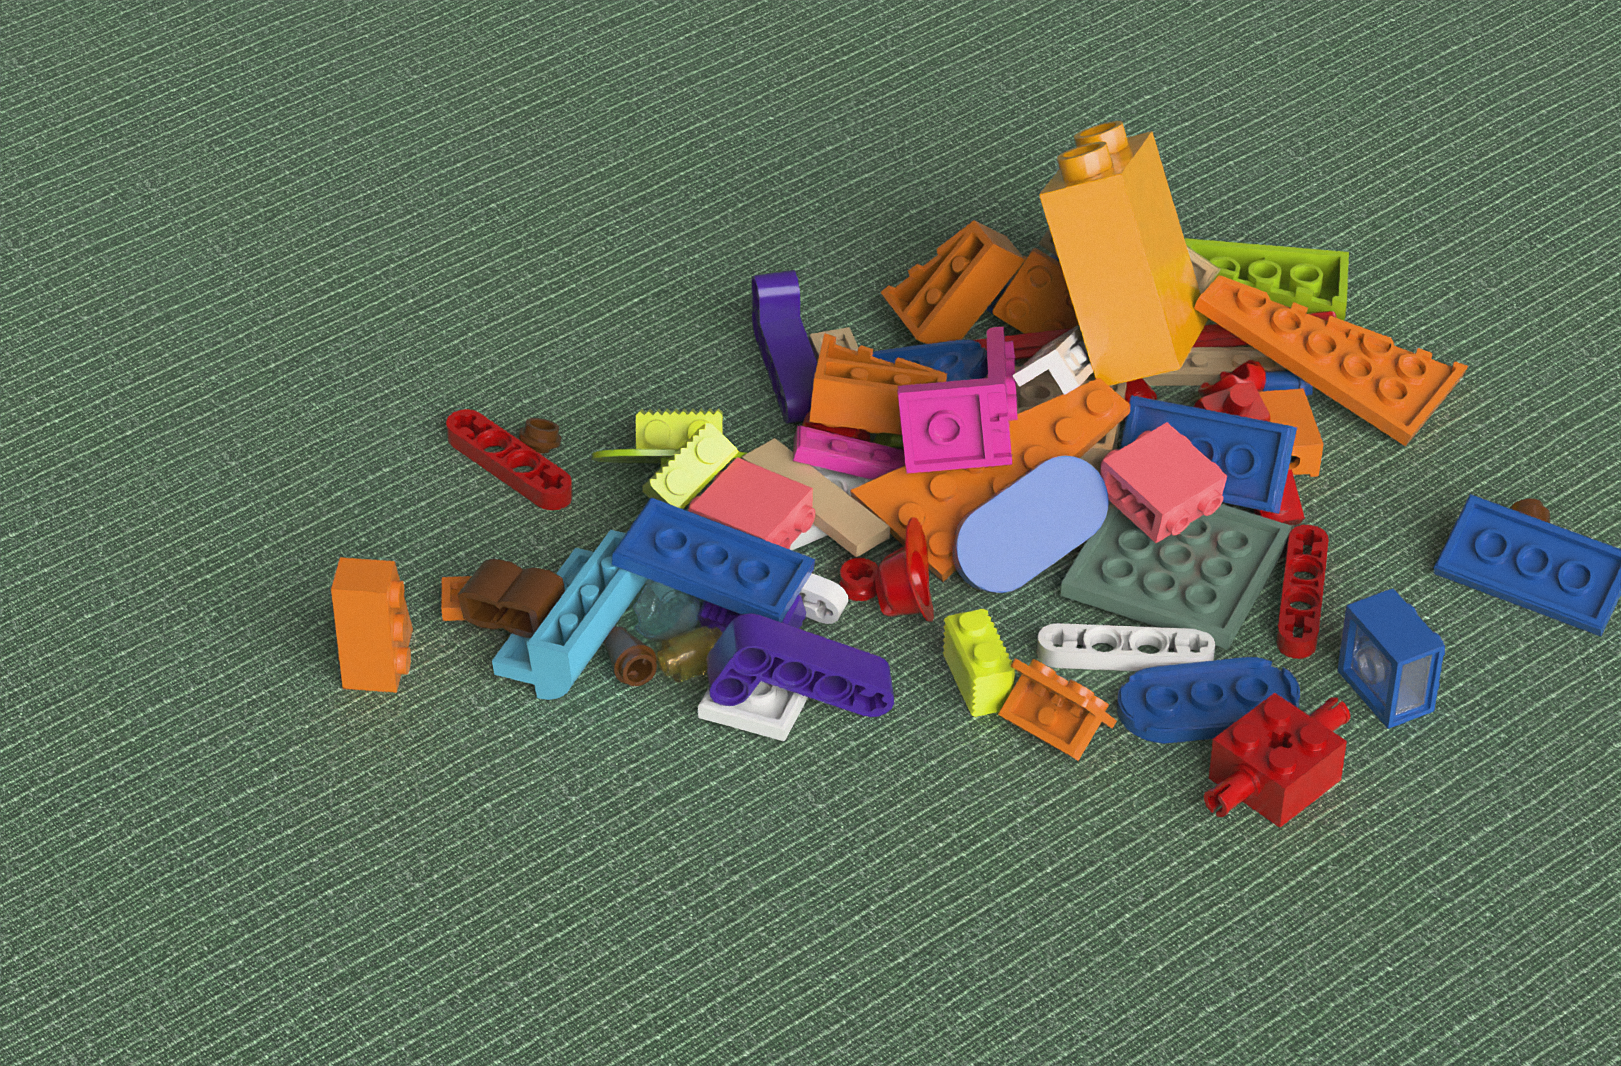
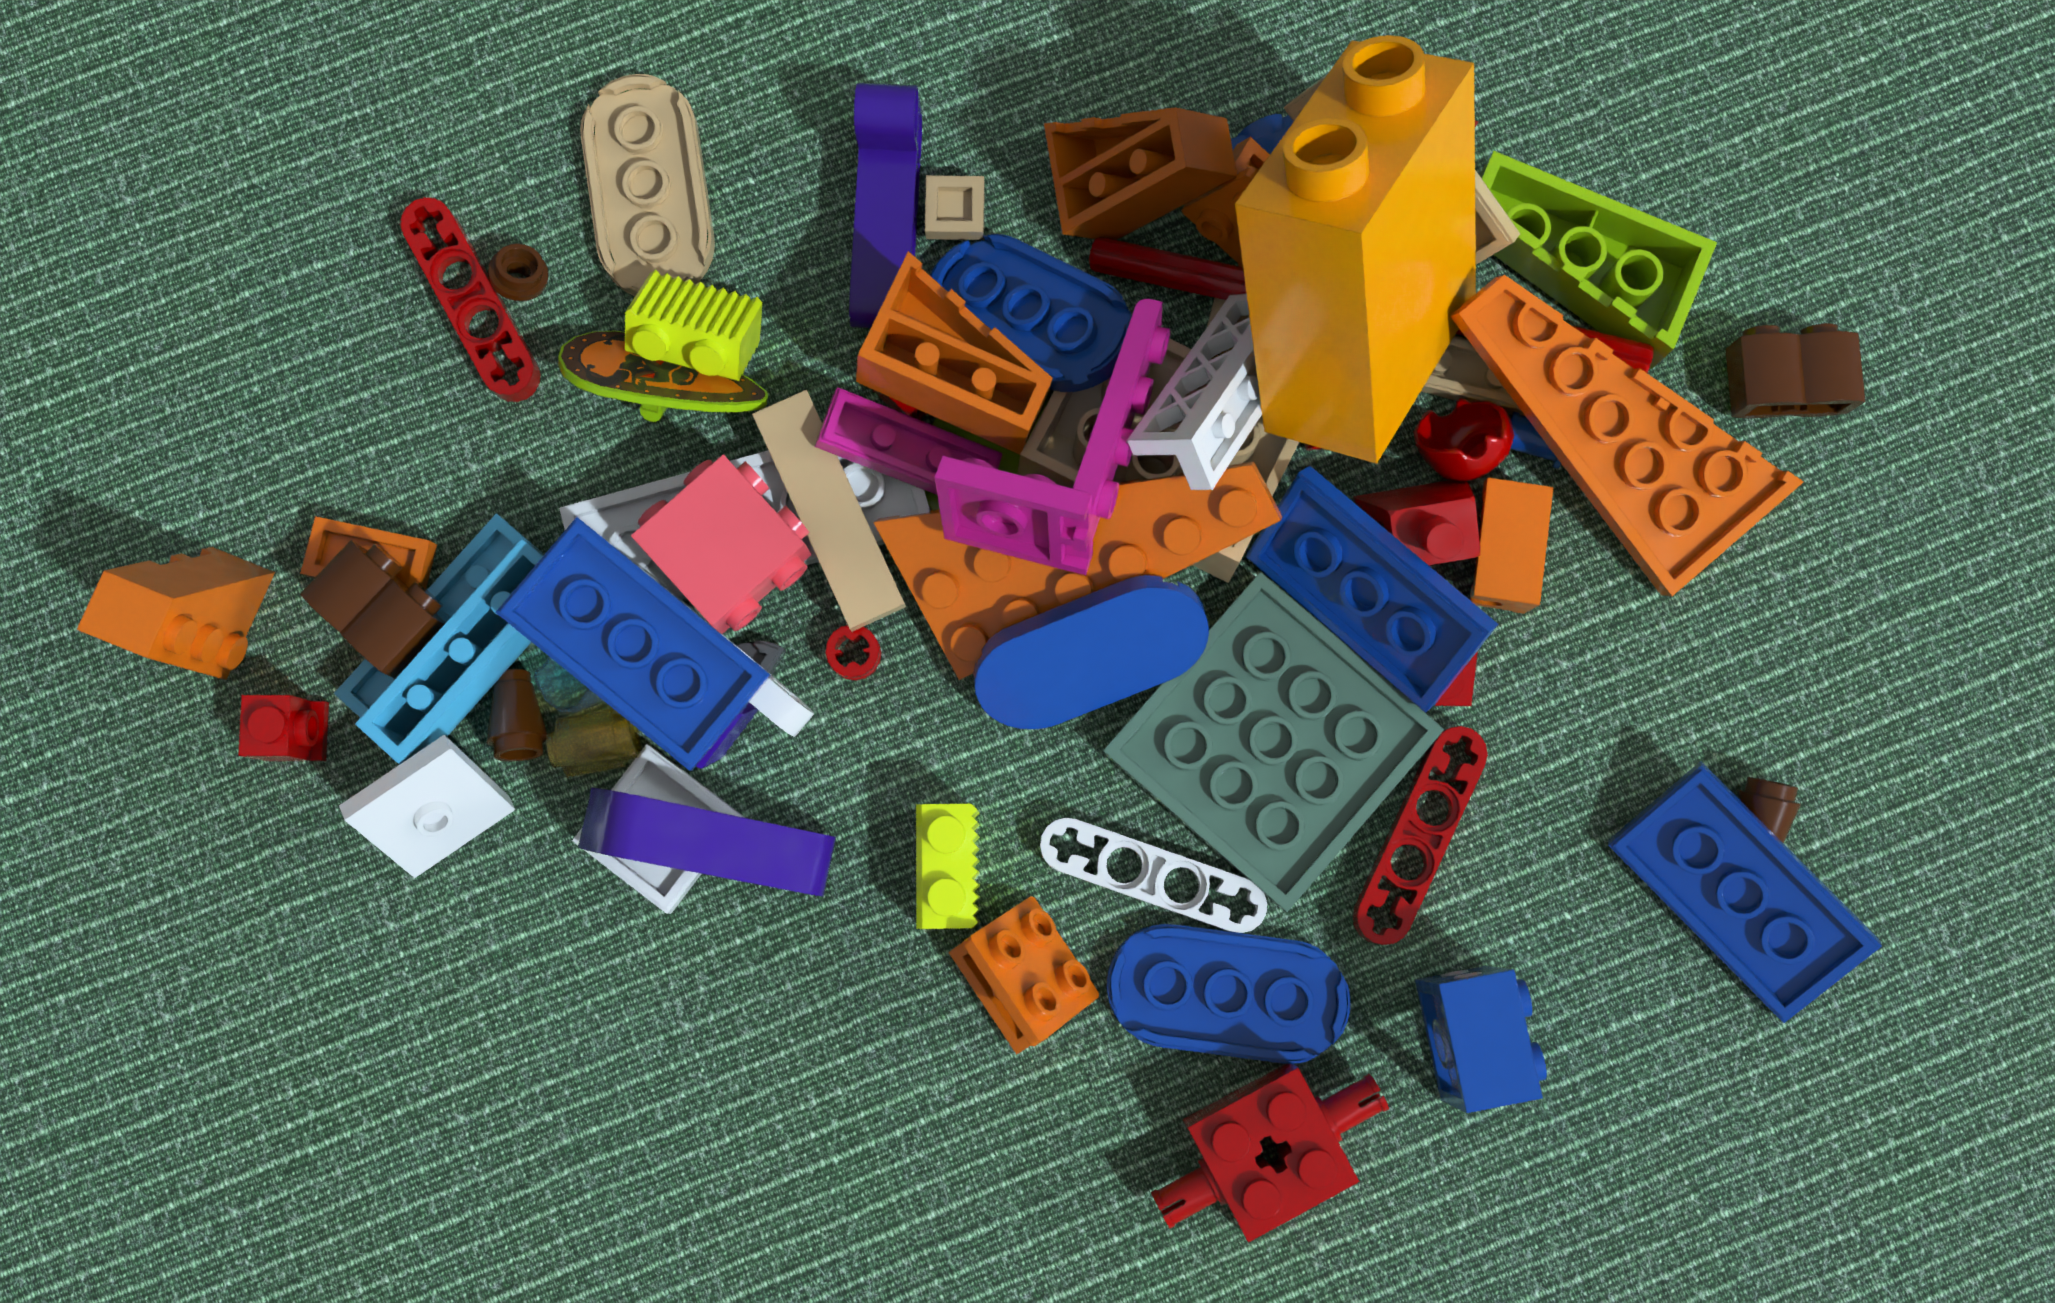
camera: 20 degrees right, 40 degrees up
(459, 690) = (283, 728): none -> red brick
(589, 697) = (427, 806): none -> white plate
(609, 381) = (646, 182): none -> tan tile
(691, 467) = (662, 445): neon yellow brick -> none
(904, 577) = (903, 694): red piece -> none
(1162, 482) = (1289, 640): coral brick -> none
(1435, 320) = (1794, 372): none -> reddish brown brick

